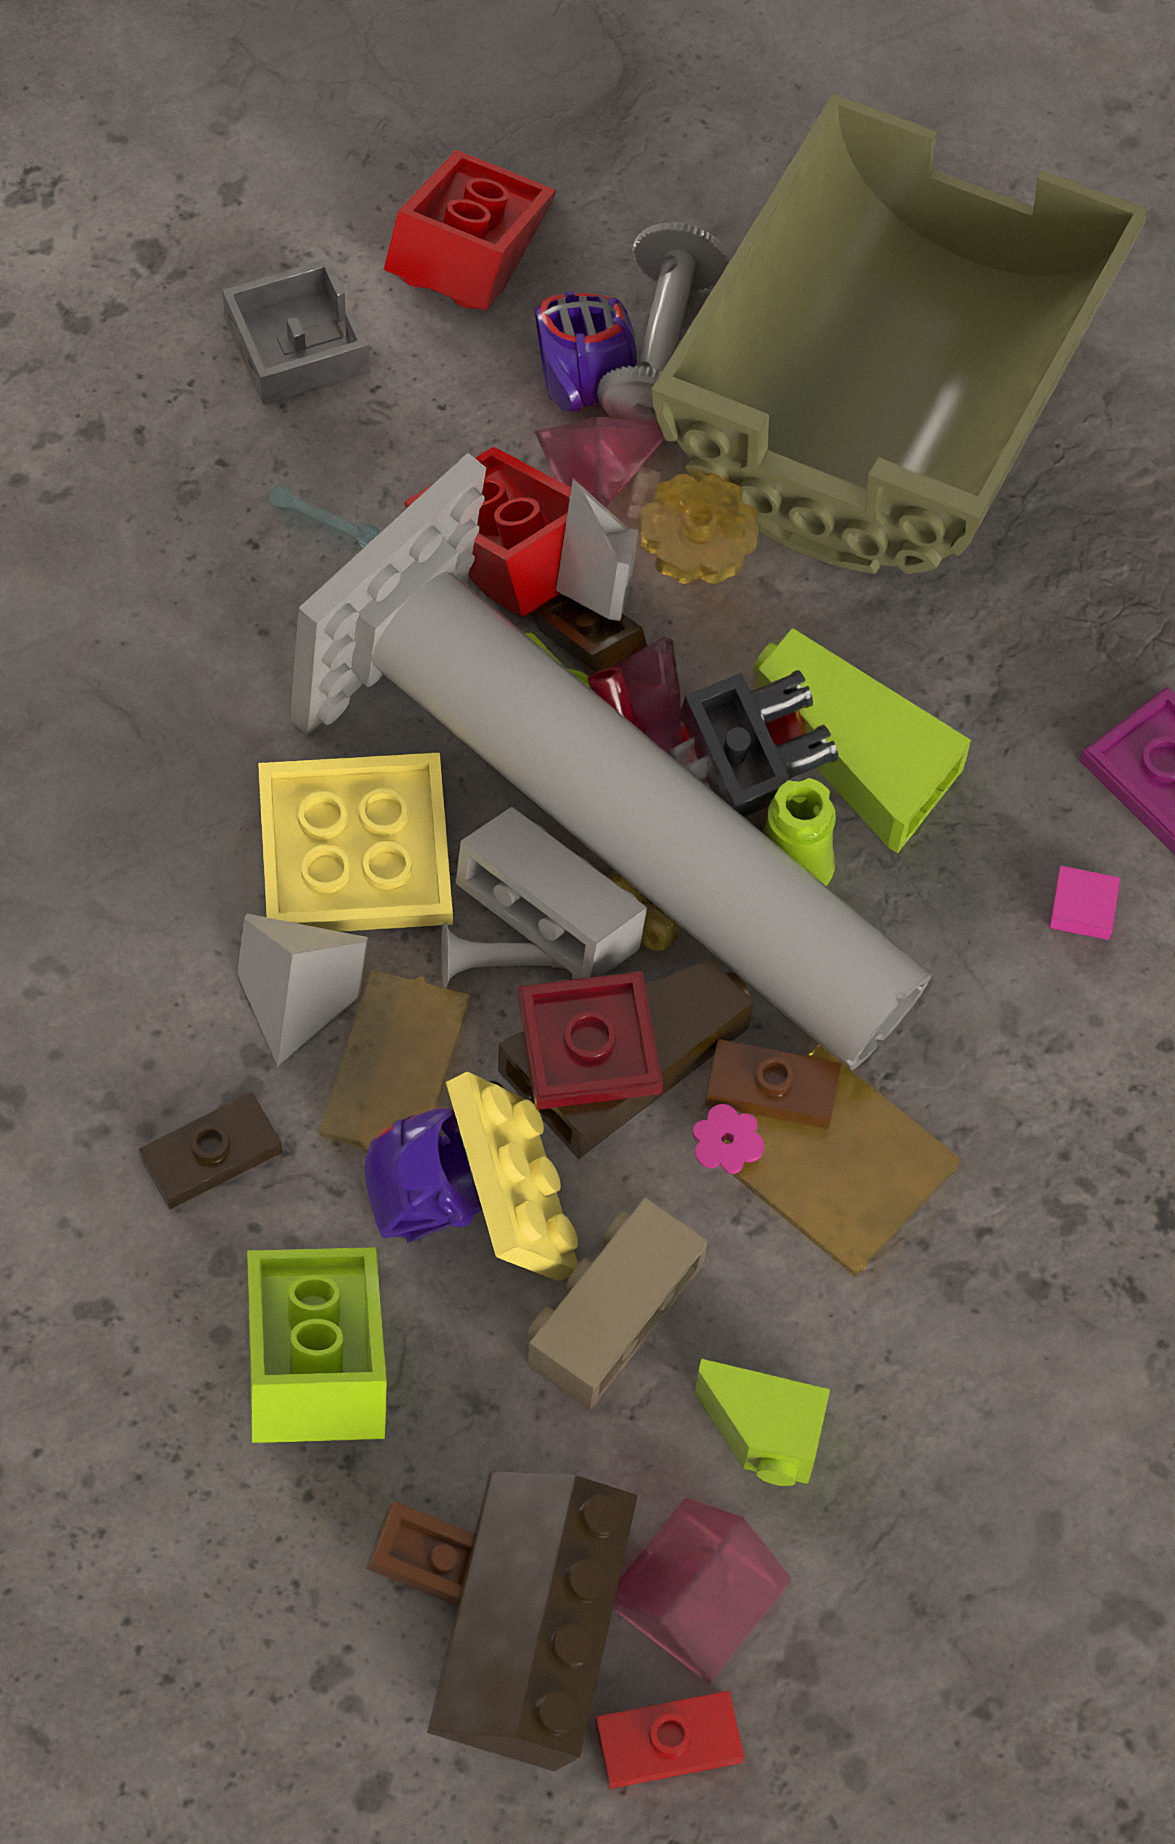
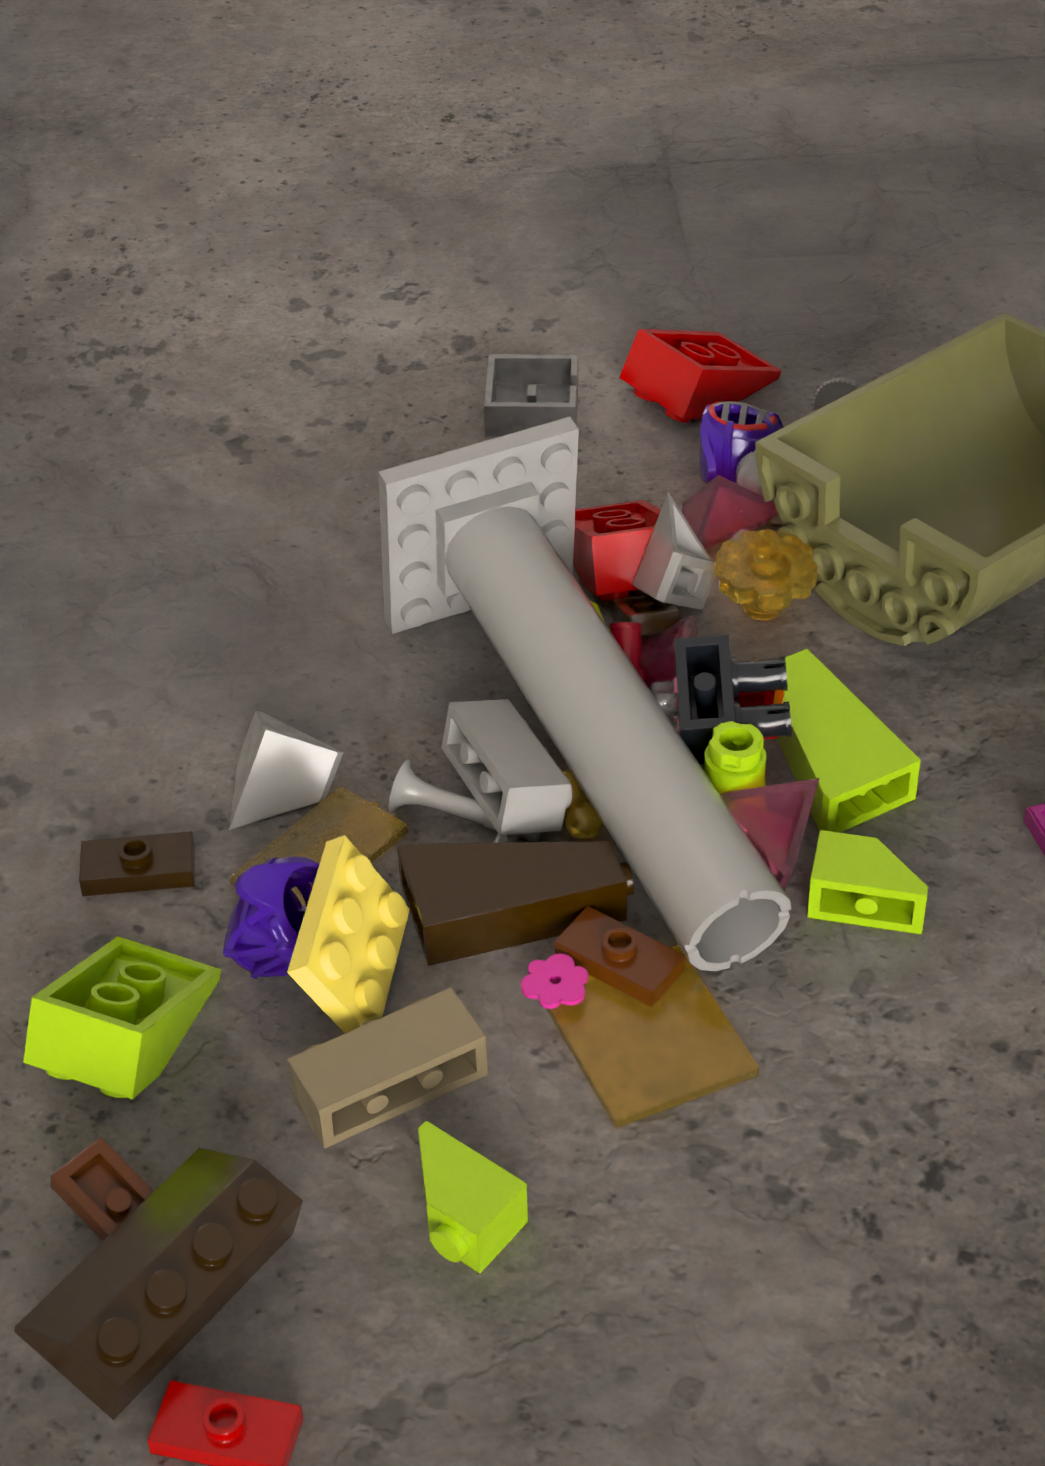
camera: 30 degrees right, 20 degrees down
(356, 842) = (380, 698): light yellow plate -> none
(589, 1040) = (469, 862): dark red tile -> none
(701, 1586) = (331, 1319): clear pink slope -> none
(870, 879) = (774, 821): none -> clear pink slope
(969, 908) = (864, 885): none -> lime slope
(1084, 902) = (974, 915): dark pink tile -> none

